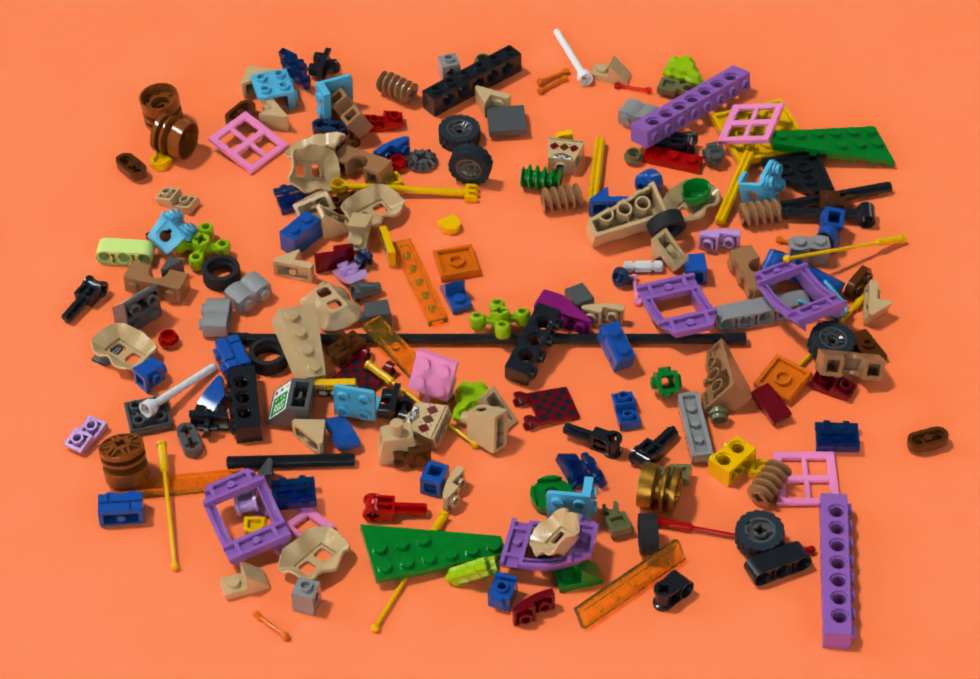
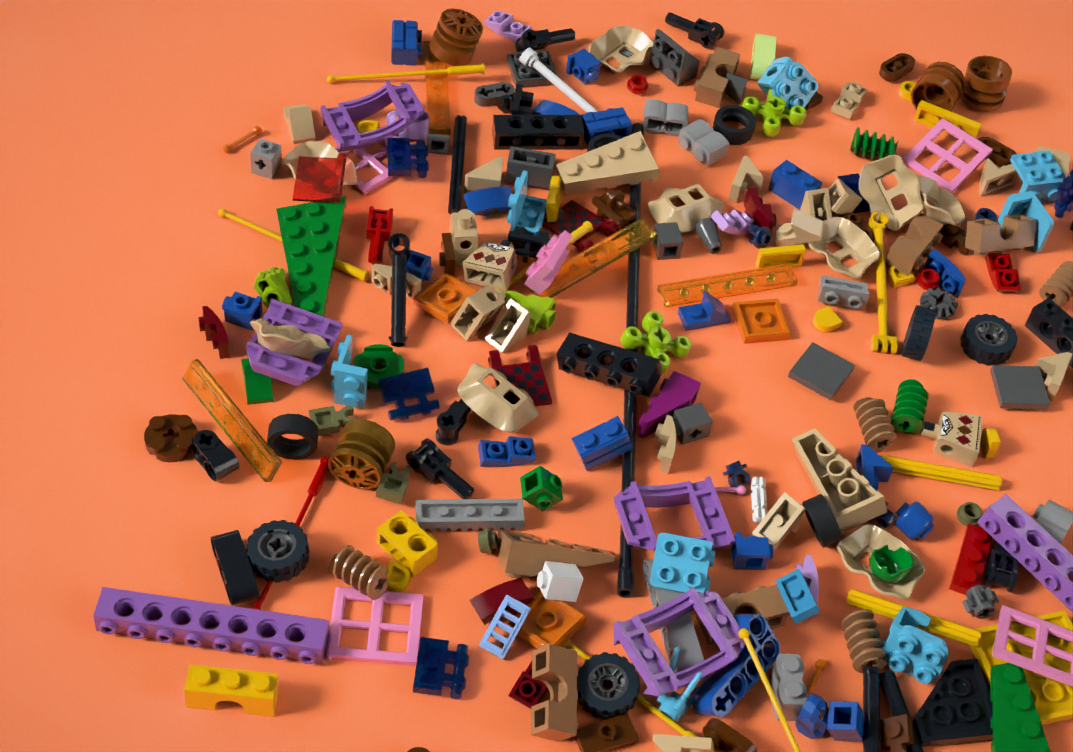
camera: 85 degrees right, 5 degrees up
(114, 406) = (541, 39): none -> black connector
(201, 144) = (930, 115): none -> yellow plate
(243, 184) = (873, 144): none -> green piece
(337, 547) = (319, 179): none -> clear red piece
(422, 211) = (843, 292): none -> light grey bracket
(436, 471) = (398, 296): none -> black piece
(467, 453) = (443, 297): none -> orange tile
(509, 227) = (821, 371): none -> dark grey tile
(580, 421) = (491, 404): none -> tan piece
(656, 615) = (166, 425): none -> reddish brown plate
(727, 294) = (681, 563): none -> medium azure bracket
(740, 236) = (797, 596): none -> dark azure plate
(751, 367) = (560, 581): none -> white brick
(796, 396) = (516, 605): none -> light blue slope
(891, 550) = (251, 689): none -> yellow arch

